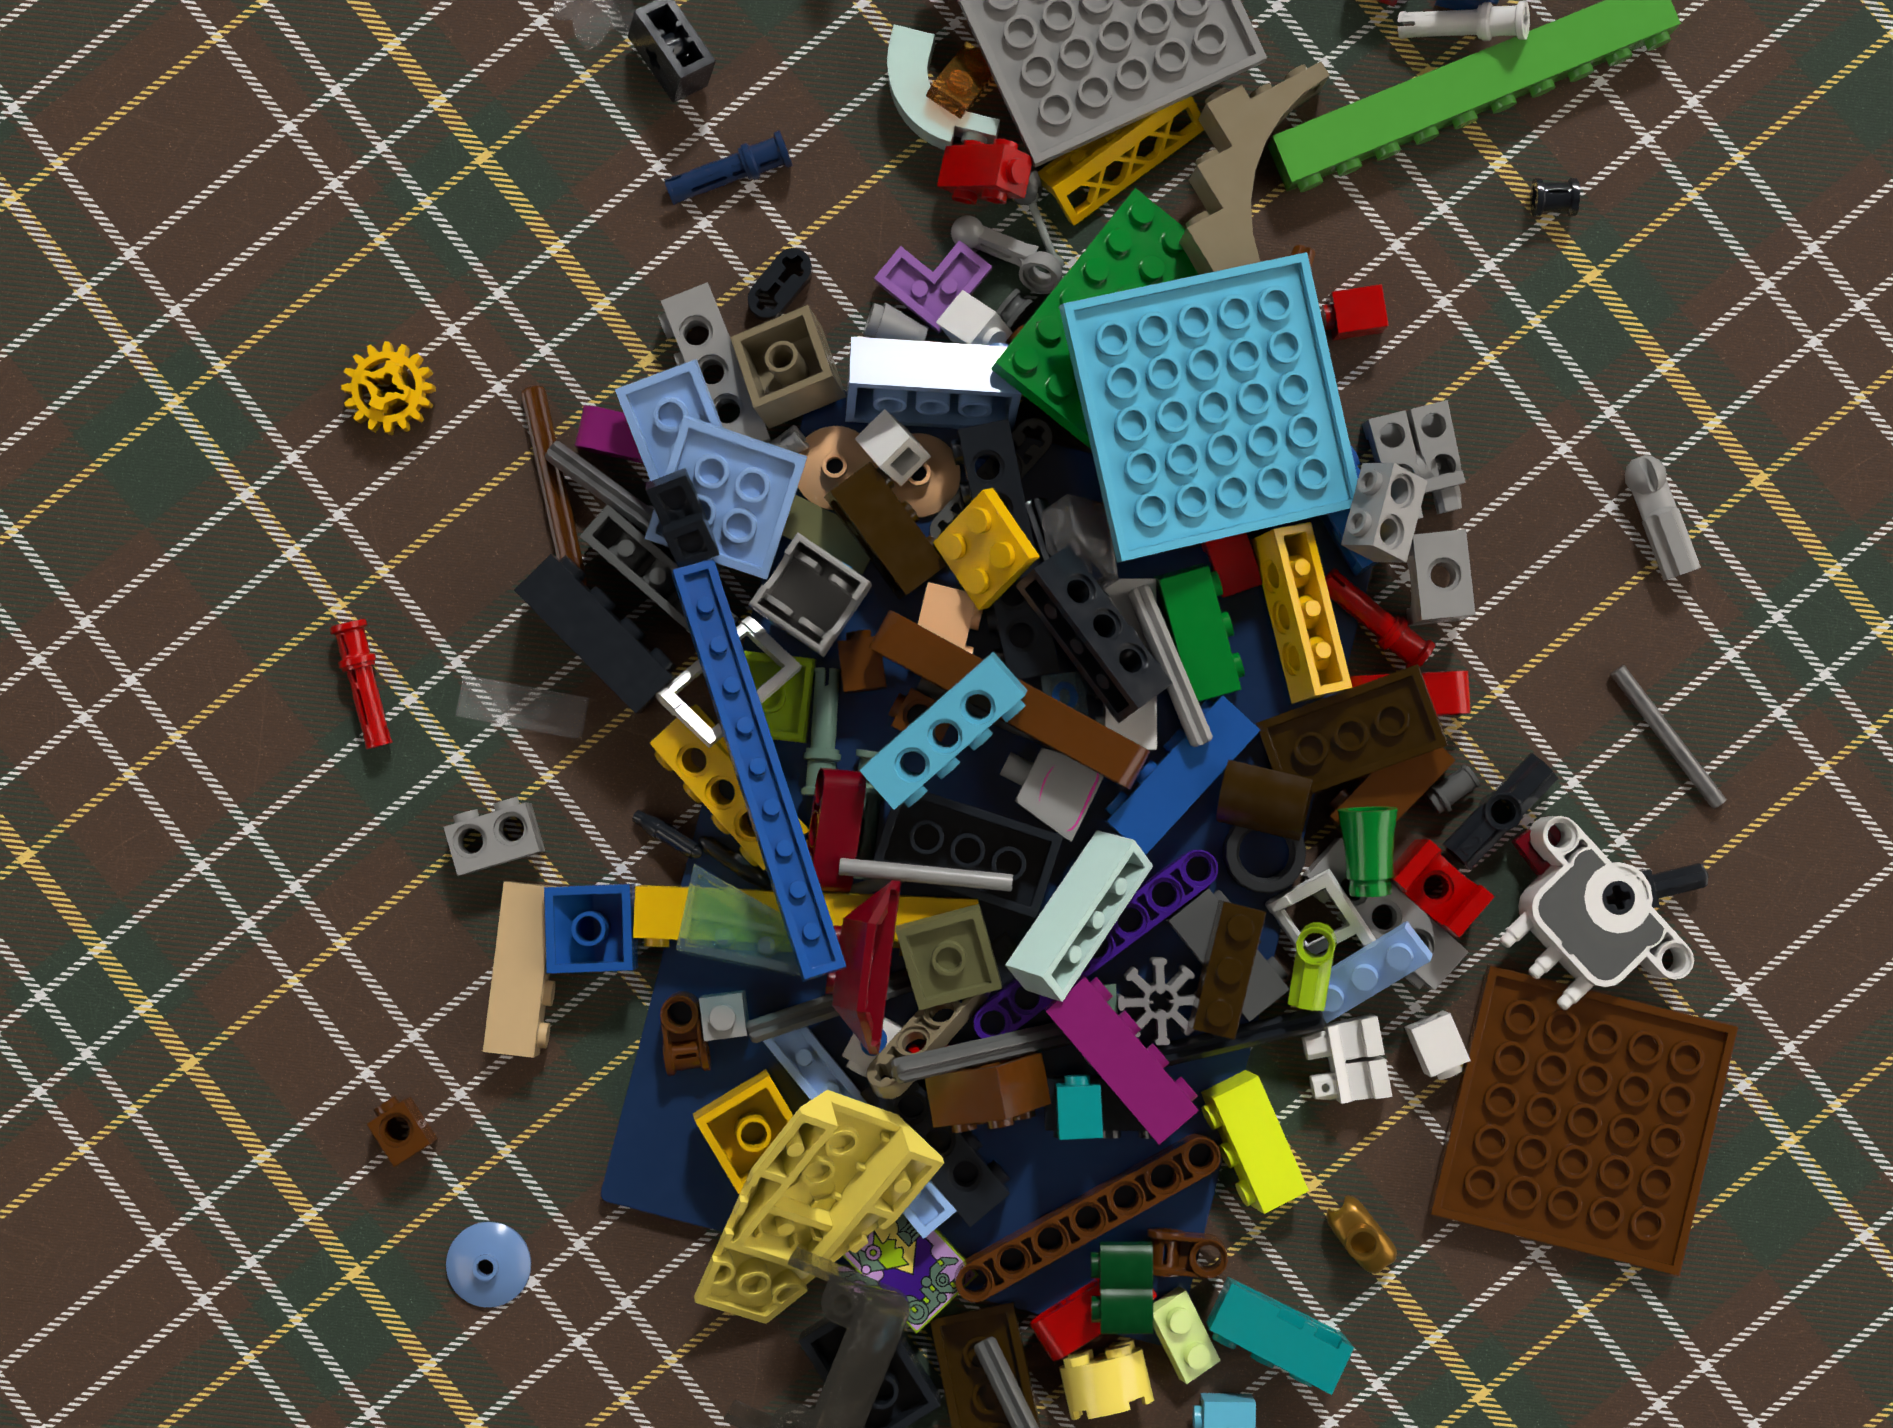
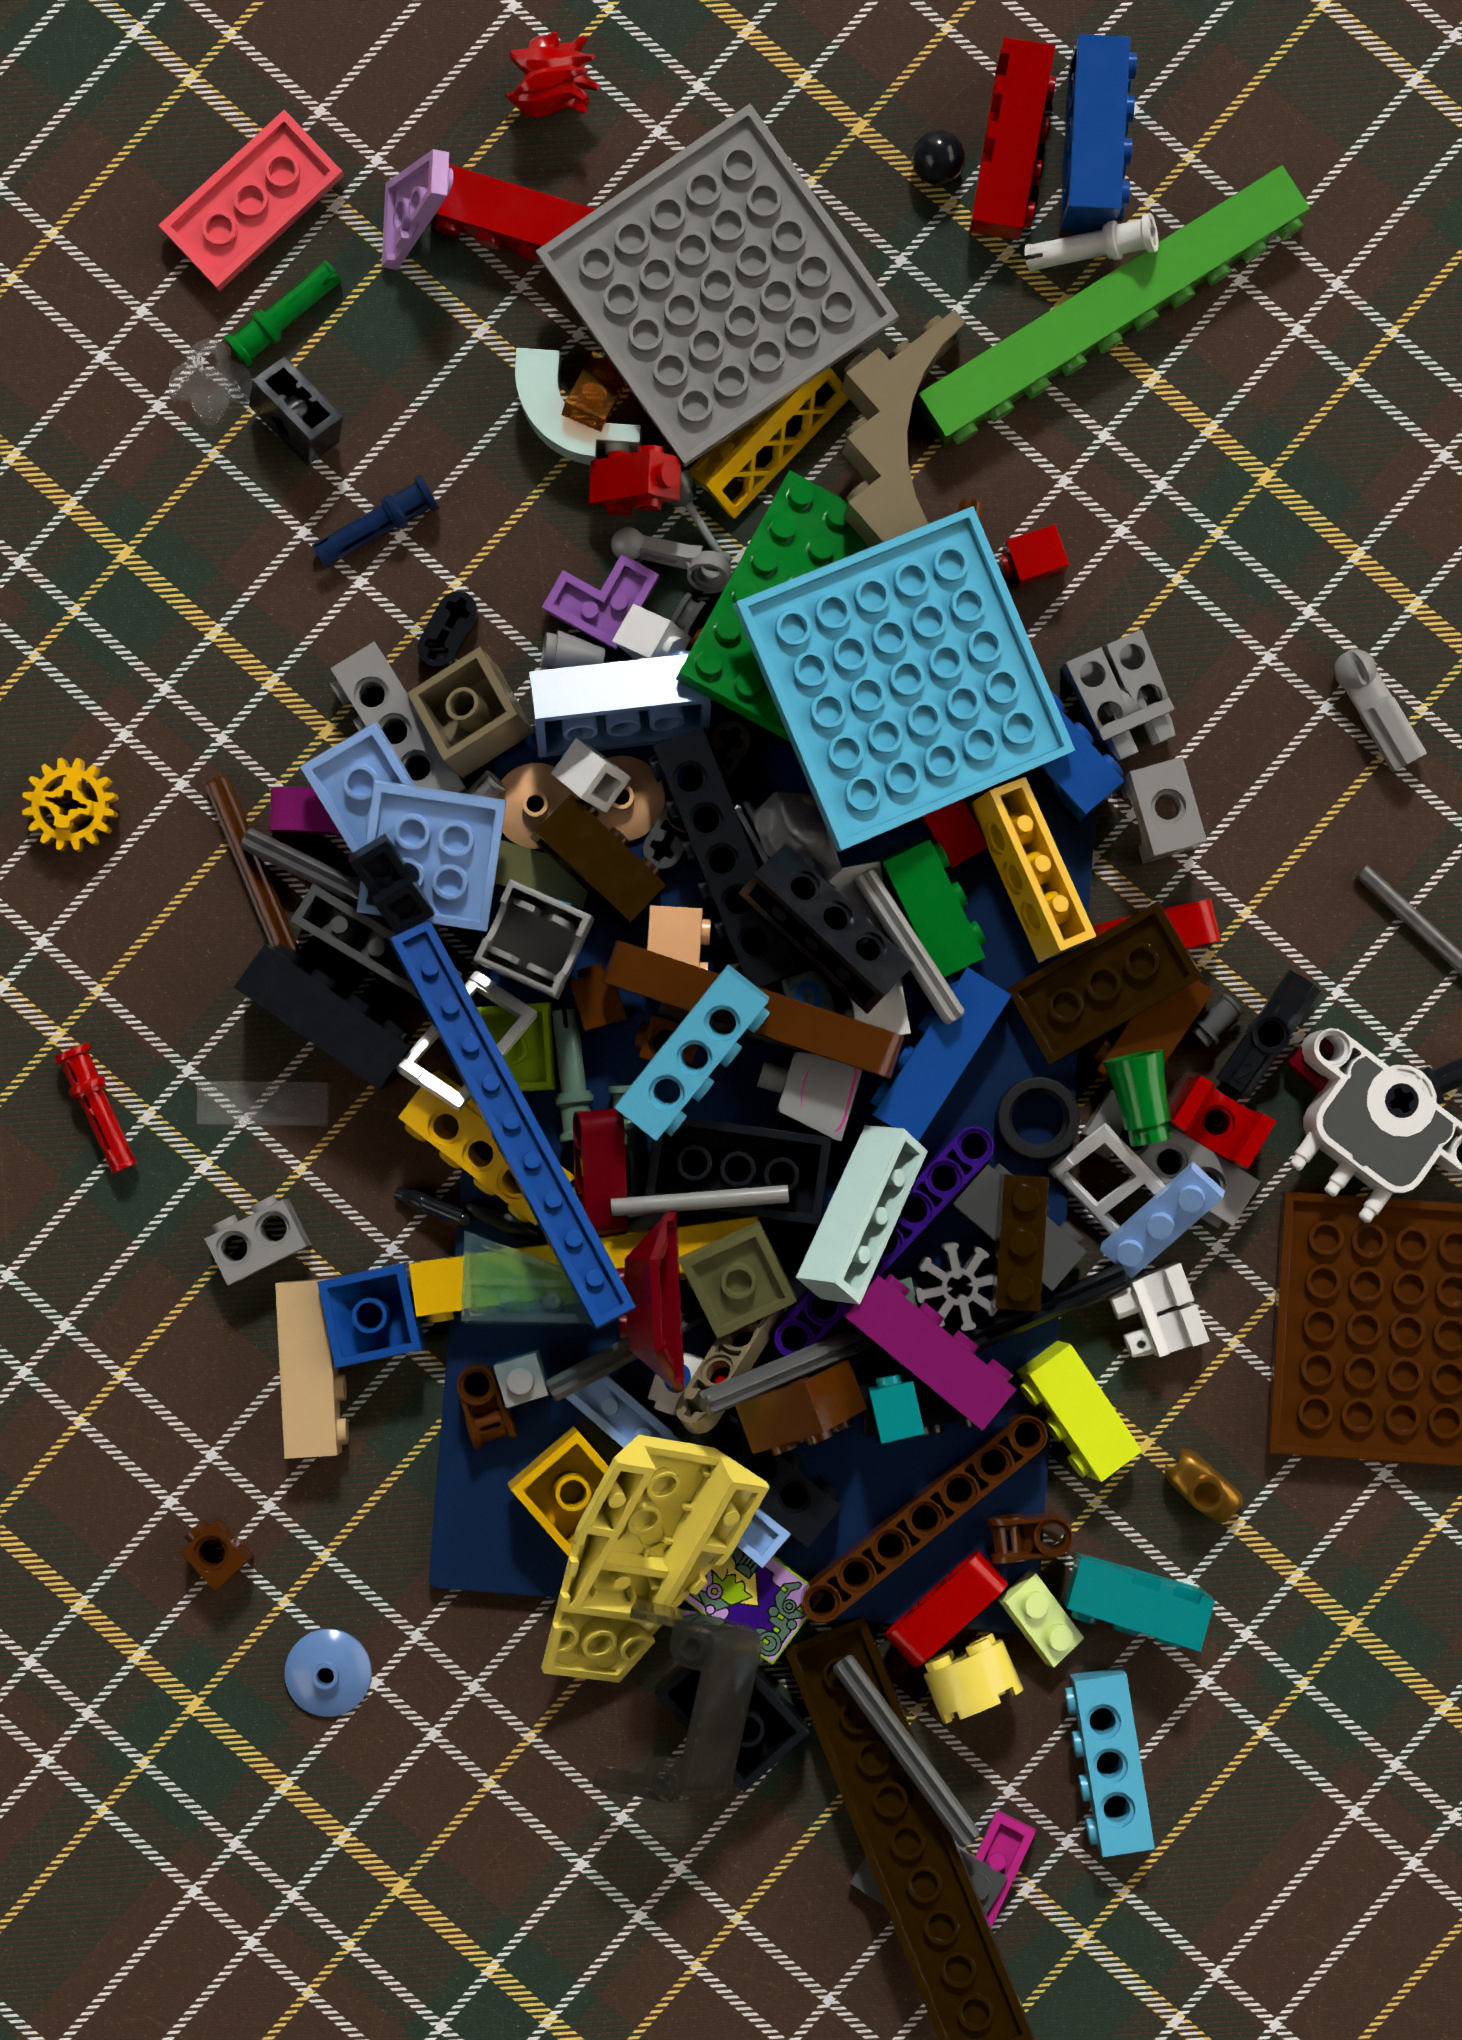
camera: 10 degrees left, 0 degrees up
(986, 549) = (702, 861): yellow plate -> none
(1125, 1287) = (973, 1581): dark green brick -> none
(1264, 800) = (1028, 1065): dark brown brick -> none
(1311, 970) = (1106, 1228): lime piece -> none
(1384, 512) = (1097, 754): light grey brick -> none
(1390, 631) = (1125, 871): red pin -> none
(1438, 1045) = (1247, 1281): white brick -> none
(1554, 197) = (1214, 404): black bush -> none

